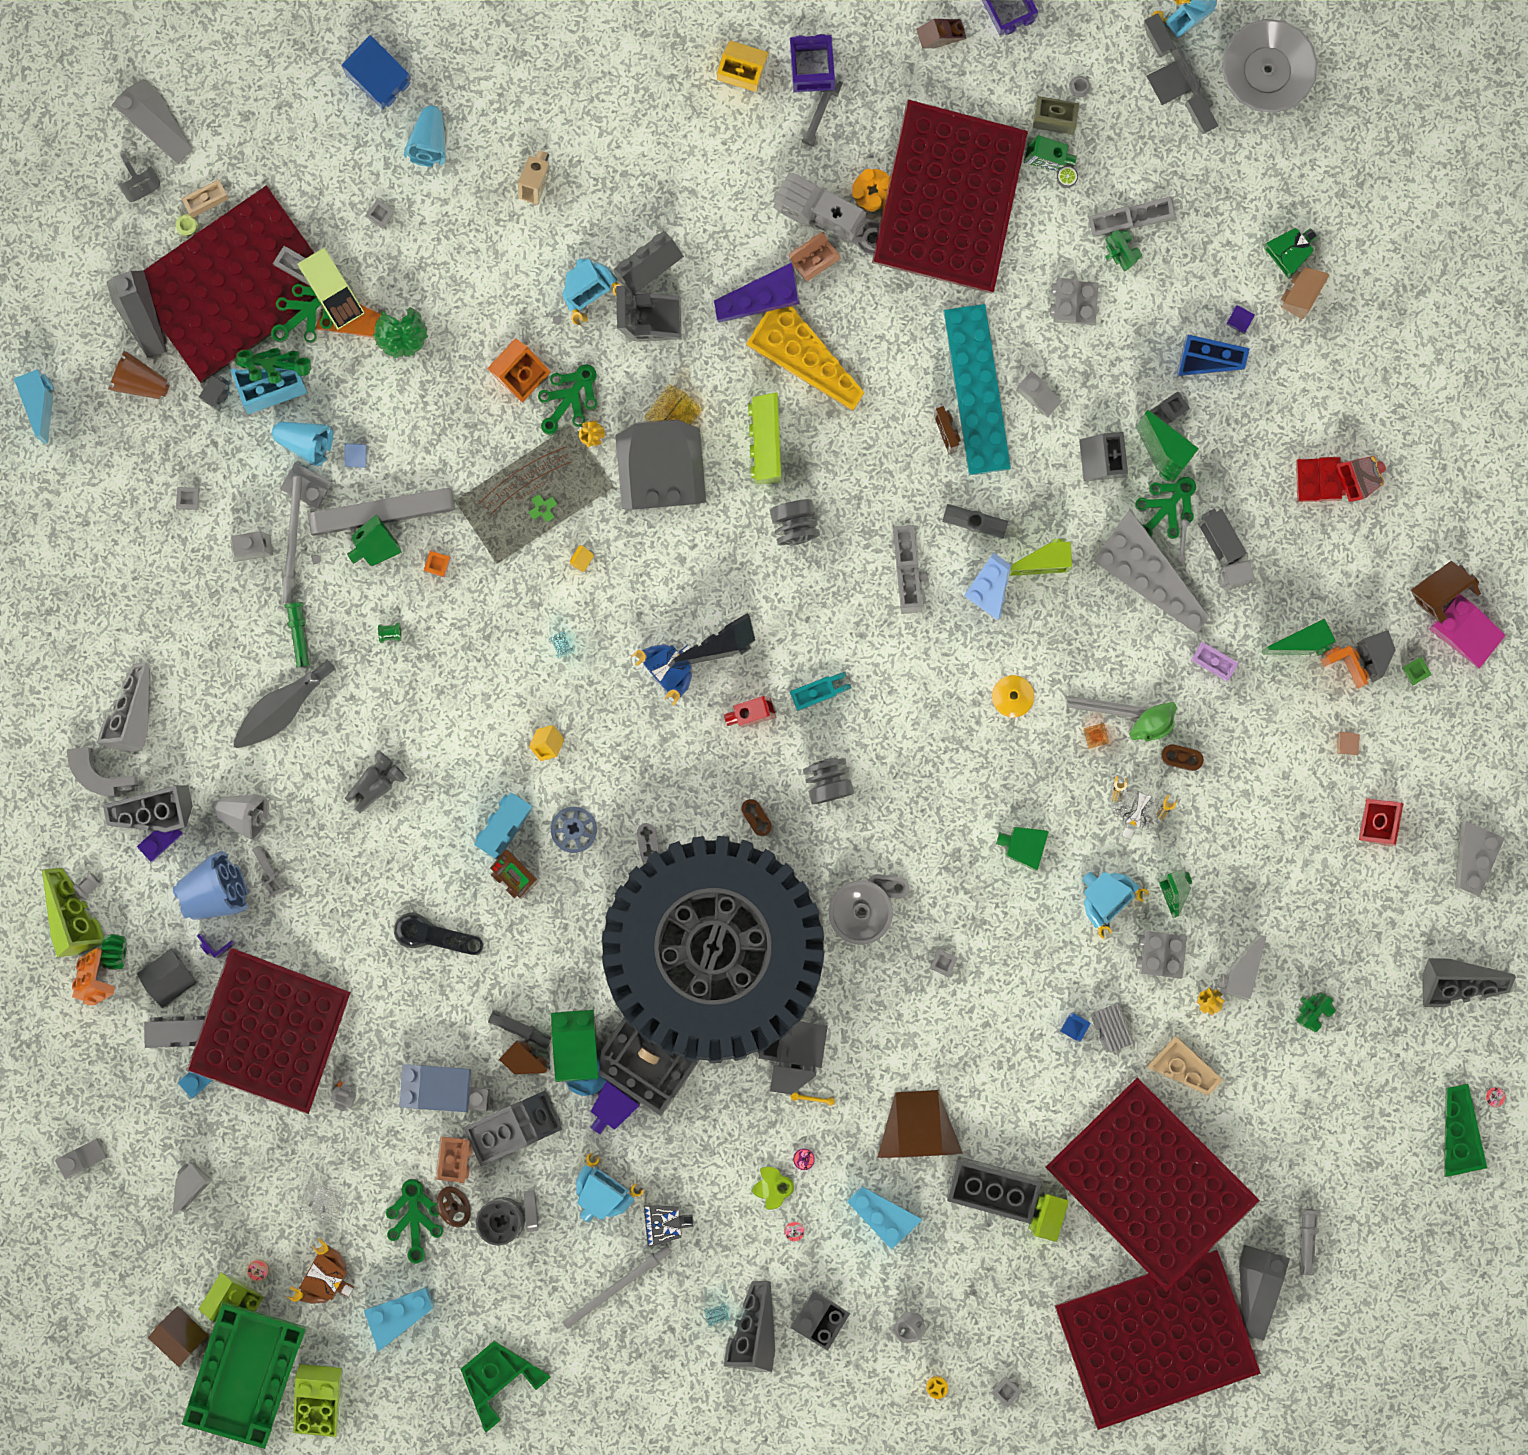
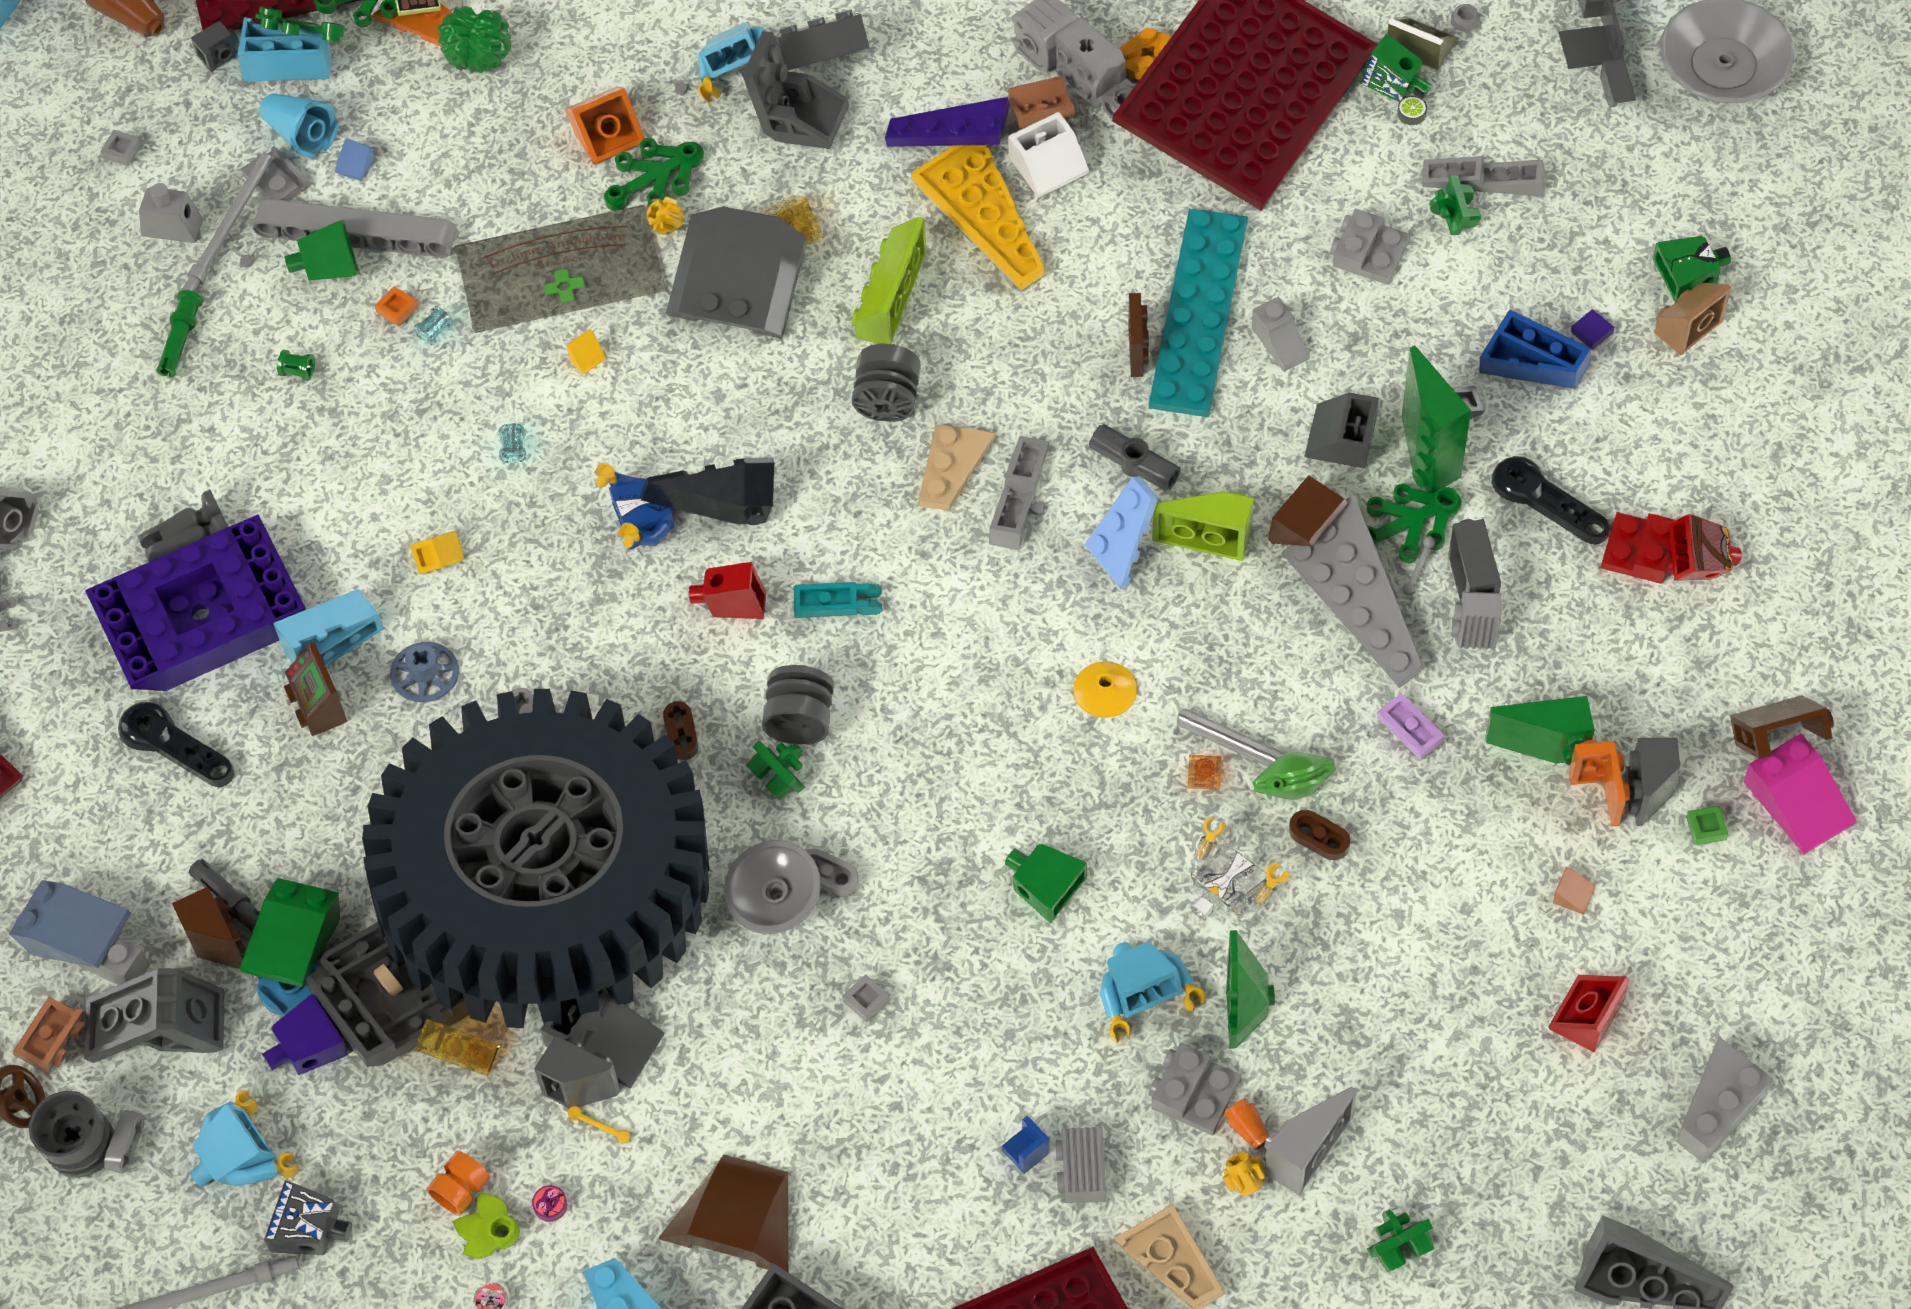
camera: 25 degrees right, 25 degrees down
(279, 708) = (111, 410): dark grey animal -> none
(378, 847) = (153, 607): none -> dark purple slope
(469, 571) = (433, 325): none -> clear light blue bush
(707, 1083) = (457, 1047): none -> clear yellow slope
(746, 1168) = (456, 1185): none -> orange wheel
(831, 822) = (766, 760): none -> green hips
(835, 300) = (1047, 154): none -> white slope
(855, 562) = (950, 463): none -> tan wing
(1104, 533) = (1305, 514): none -> reddish brown slope
(1201, 966) = (1247, 1123): none -> orange cone
(1245, 461) = (1546, 498): none -> black beam

